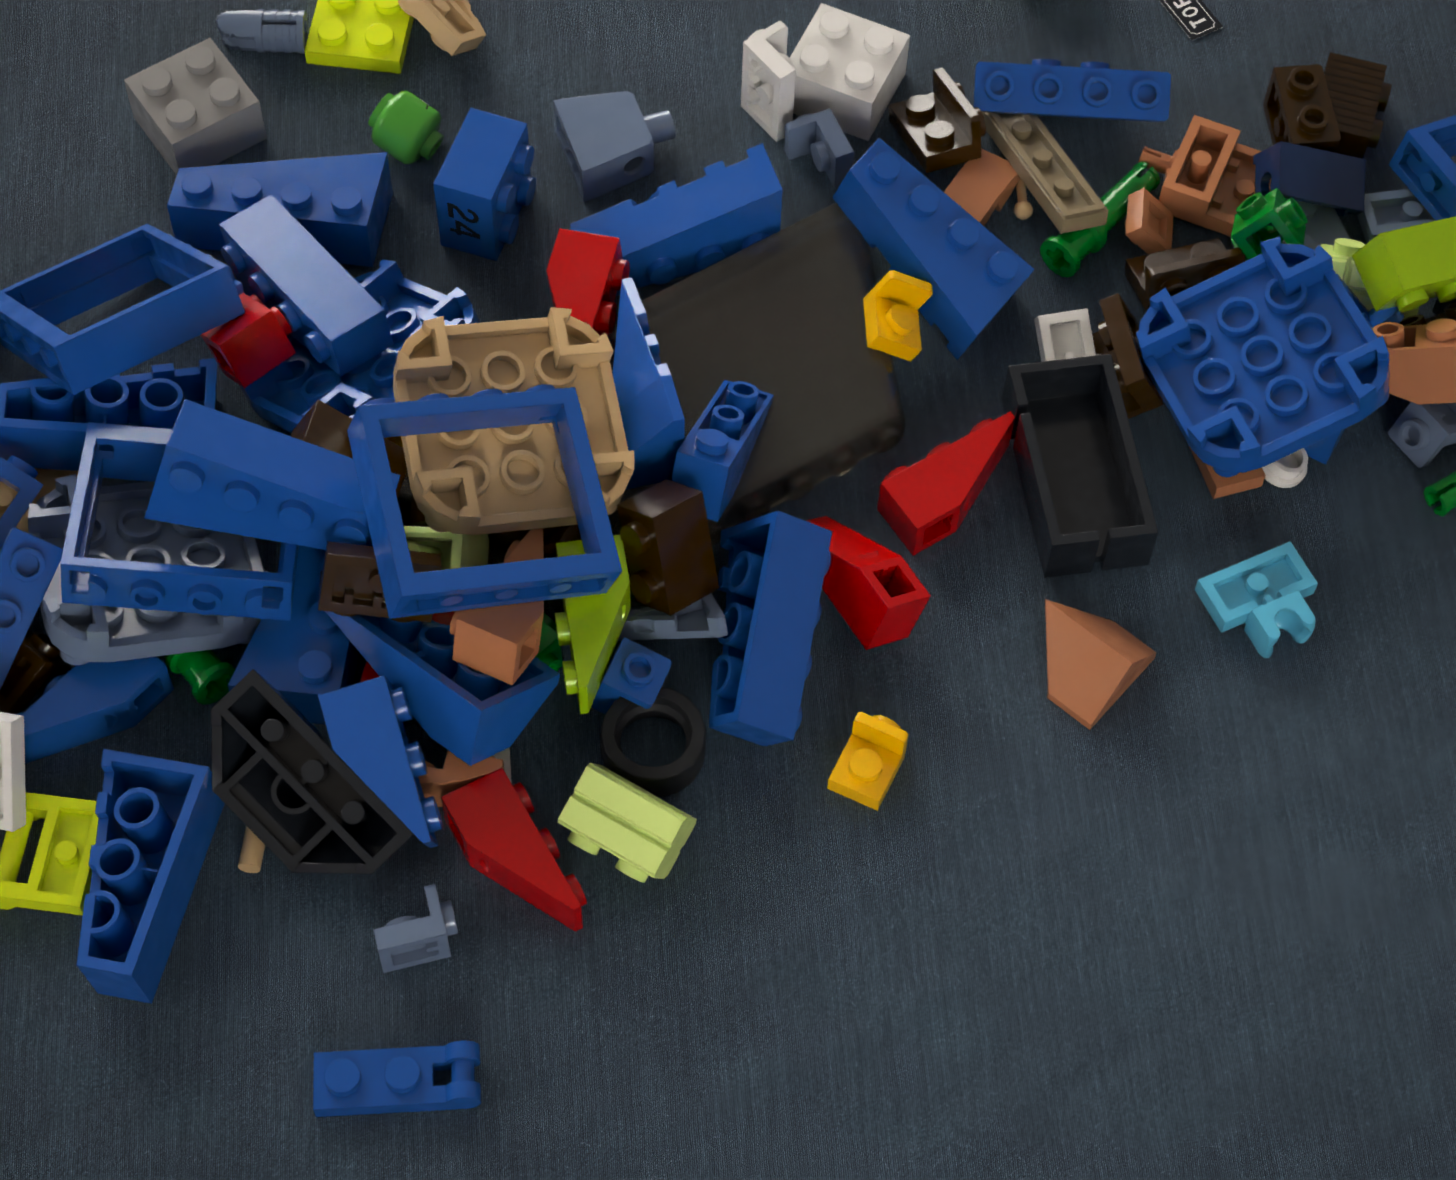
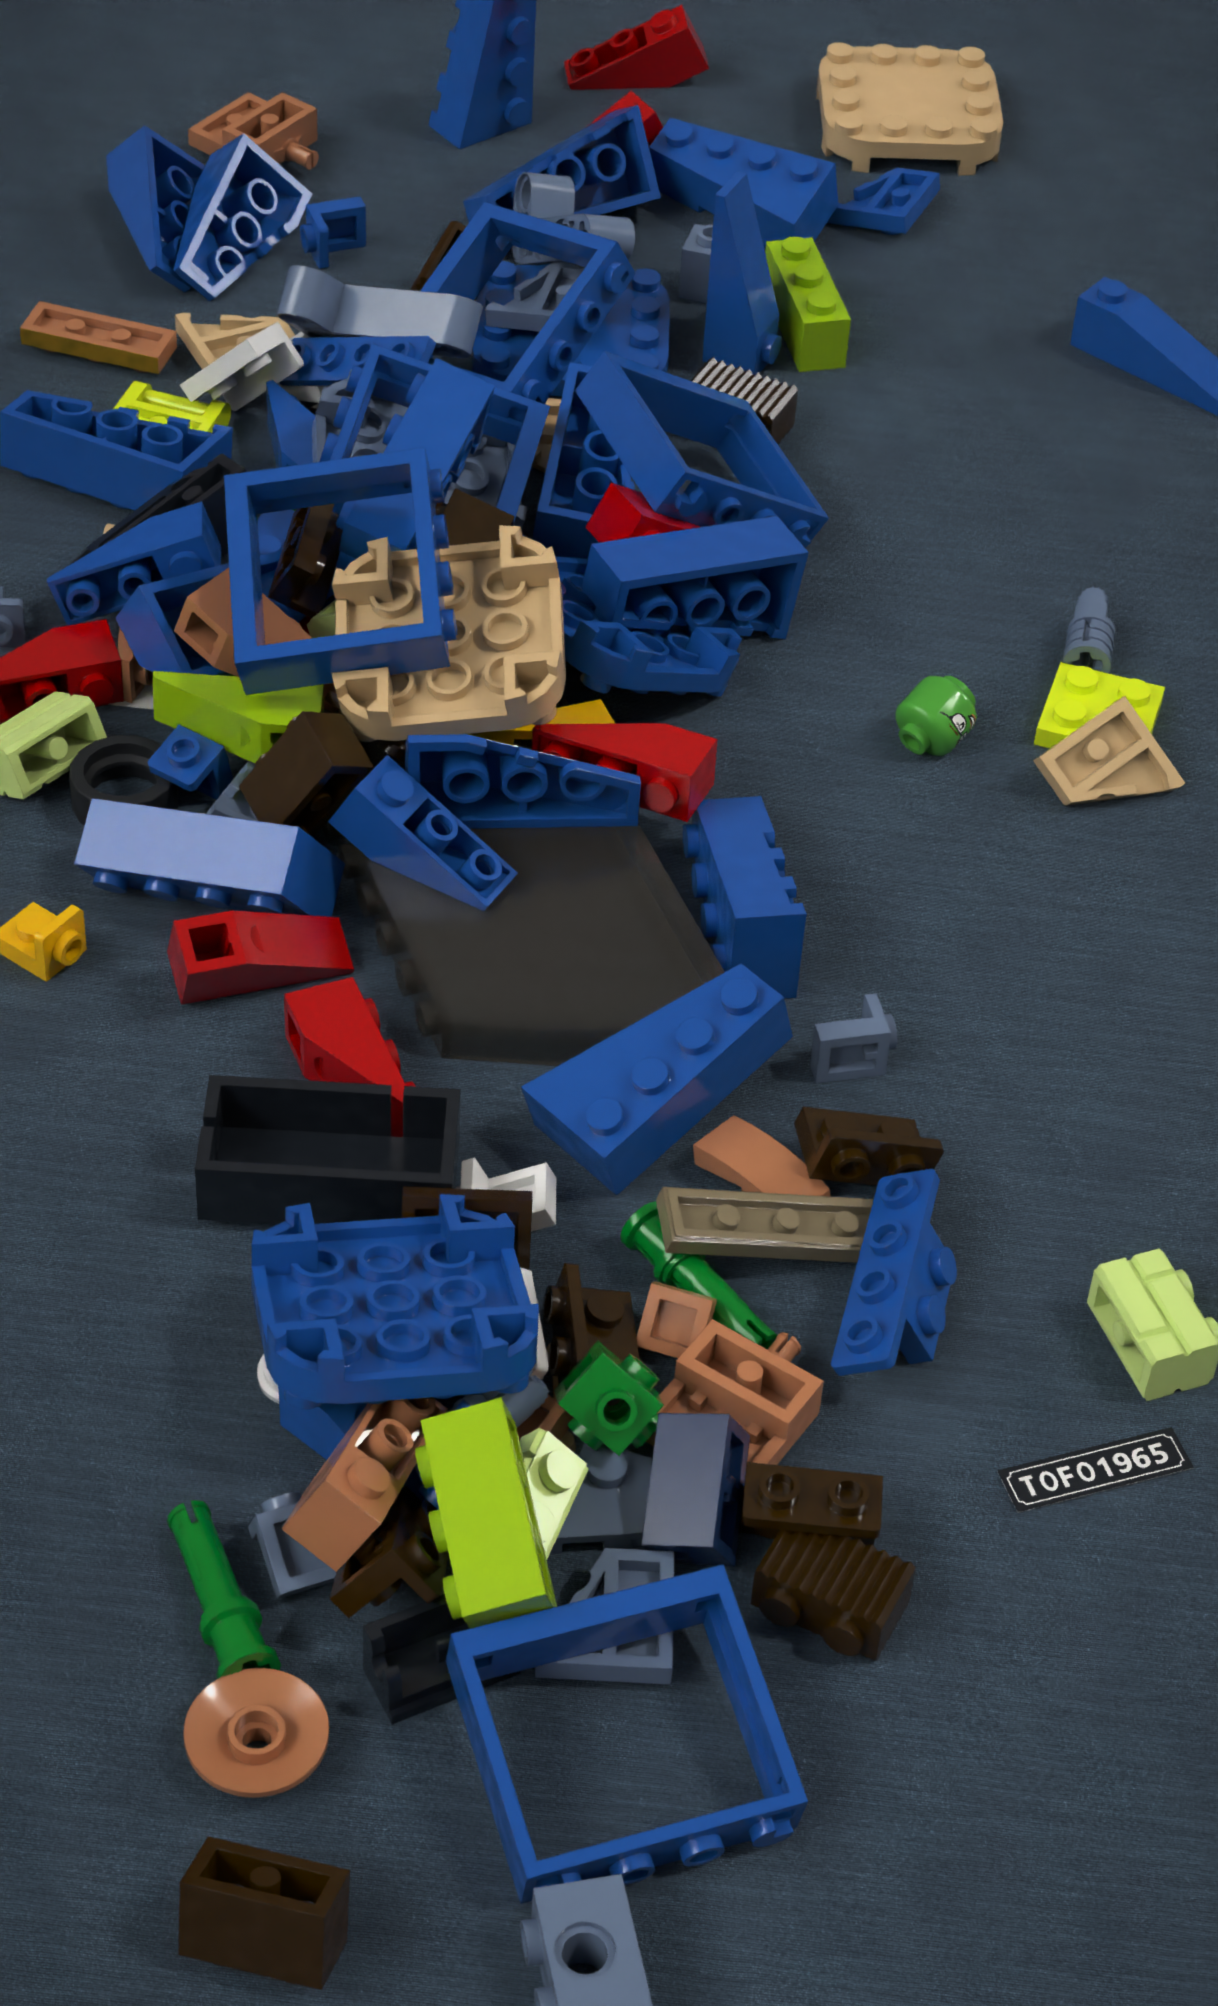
camera: 100 degrees right, 15 degrees down
(196, 107) = (982, 572): light grey brick -> none
(332, 197) = (832, 627): blue wedge -> none
(484, 184) = (828, 740): blue brick -> none
(608, 140) = (890, 864): sand blue torso -> none
(768, 79) = (942, 985): white bracket -> none
(848, 68) = (963, 1077): white brick -> none
(893, 314) = (565, 1025): yellow bracket -> none
(1089, 661) = (93, 1138): nougat slope -> none
(1264, 595) = (111, 1301): medium azure plate -> none

